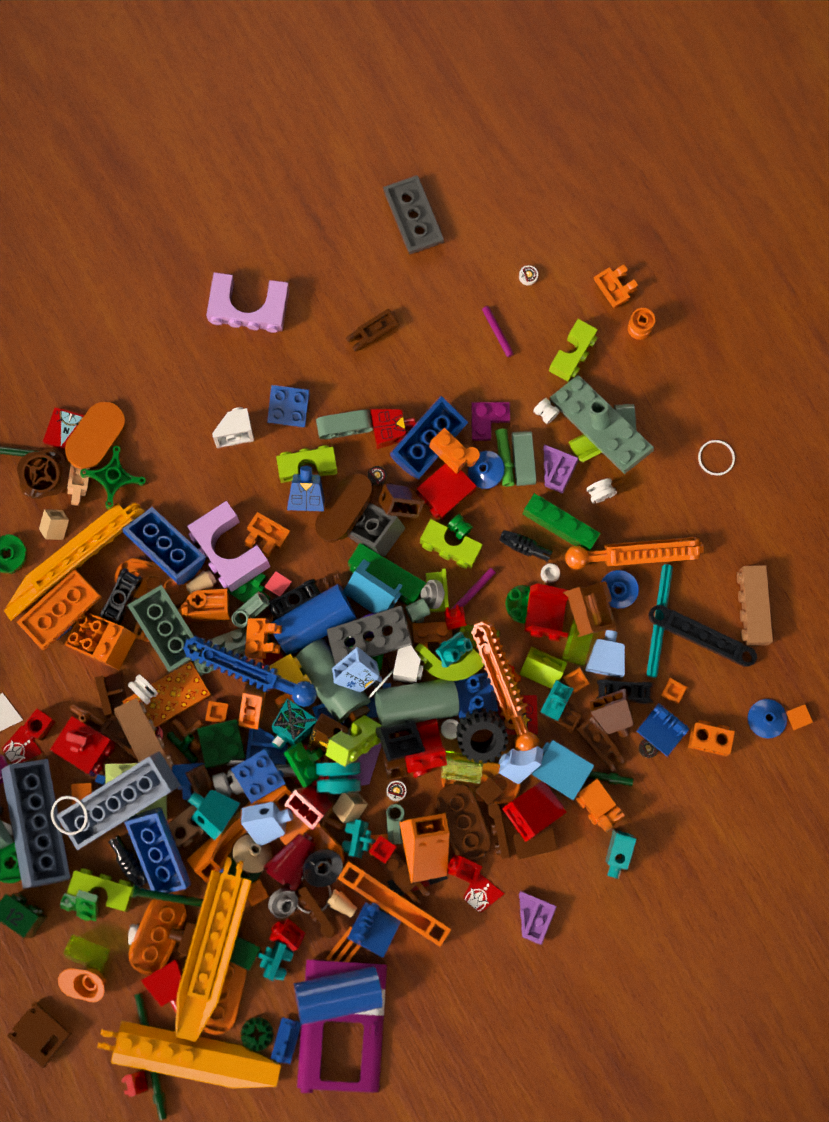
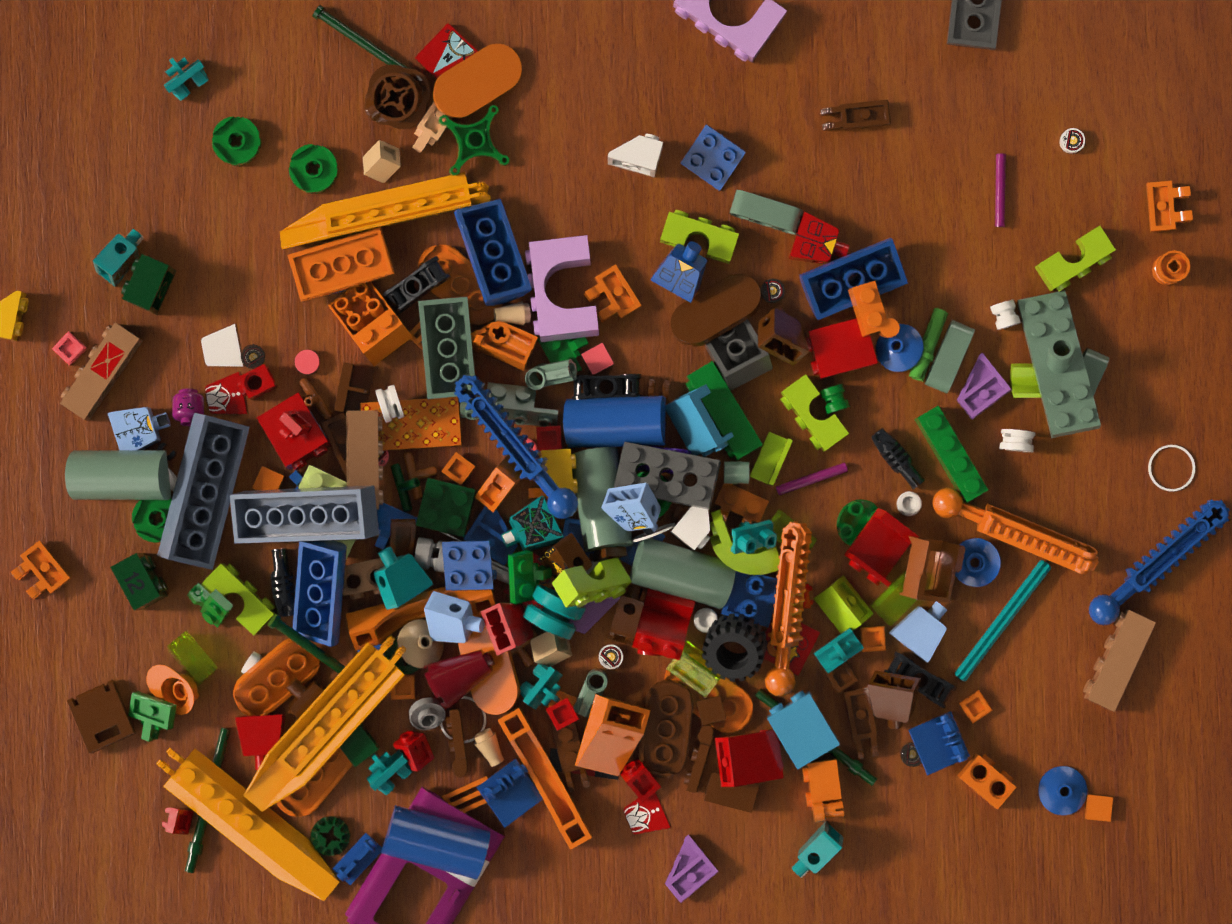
camera: 30 degrees right, 10 degrees up
(26, 708) = (253, 356): none -> clear smoke tile
(68, 692) = (307, 362): none -> coral tile
(78, 1011) = (153, 714): none -> green hinge
(84, 808) = (262, 498): white piece -> none
(256, 638) = (542, 412): orange plate -> none
(325, 874) = (487, 707): black dish -> none
(401, 746) = (641, 615): black plate -> none
(433, 594) = (763, 462): light grey plate -> none
(455, 617) = (774, 500): red tile -> none
(486, 413) = (933, 281): magenta plate -> none
(520, 764) = (759, 700): light blue arch -> none
(702, 636) = (1041, 663): black plate -> none
(726, 574) = (1105, 608): none -> blue gear

